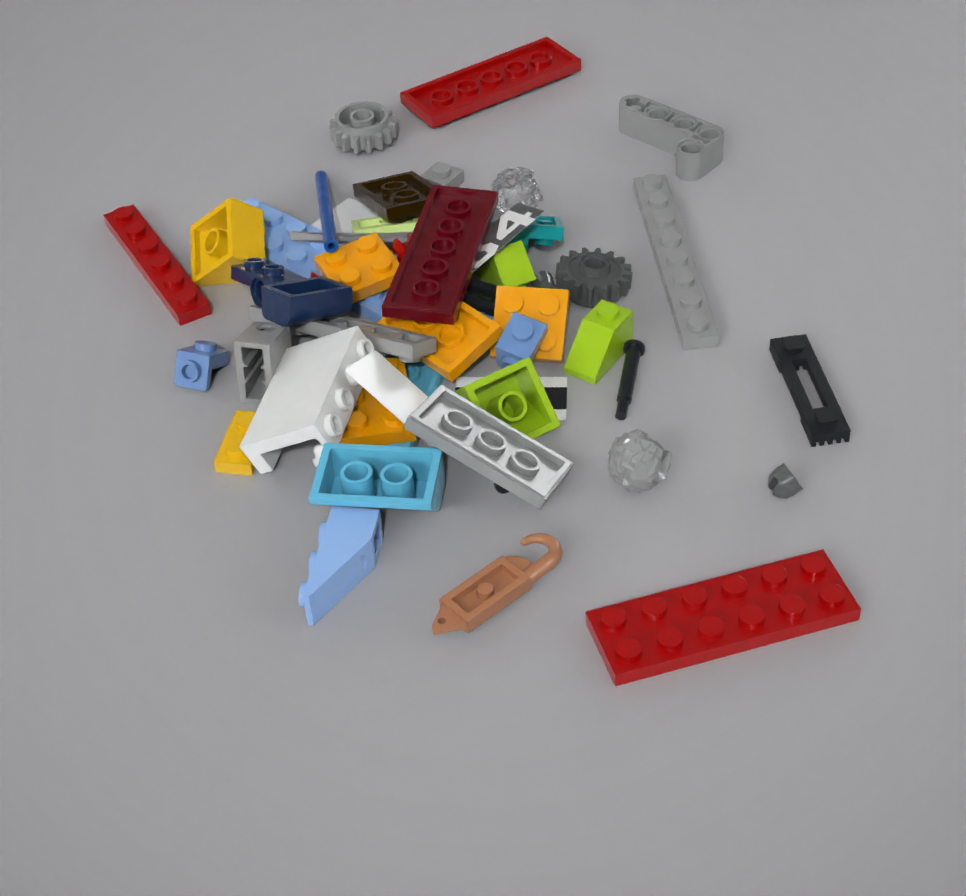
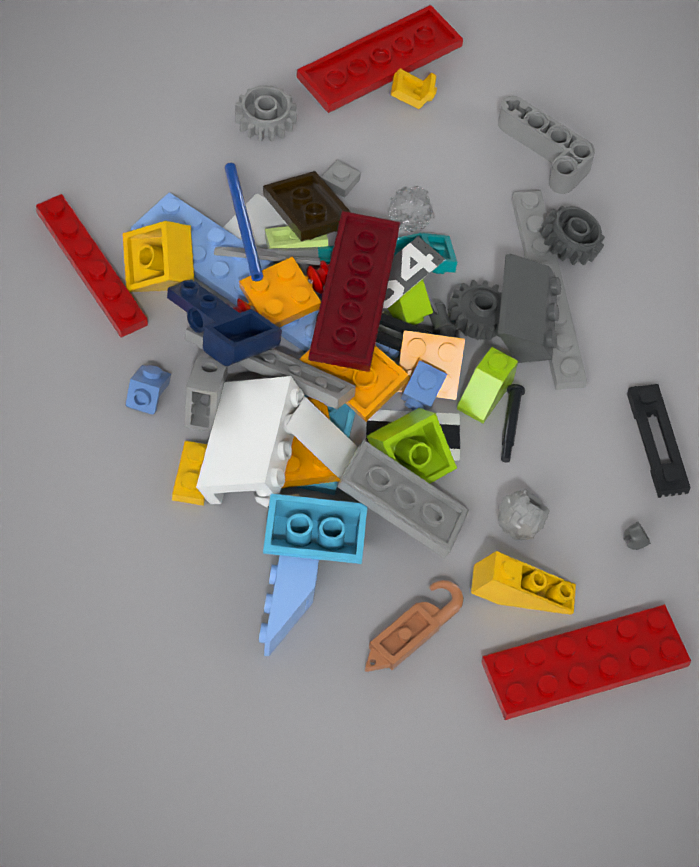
camera: 10 degrees left, 15 degrees up
(525, 103) = (412, 89): none -> yellow bracket
(636, 535) = (521, 585): none -> yellow slope
(646, 265) = (529, 309): none -> dark grey slope
(701, 205) = (573, 234): none -> dark grey gear

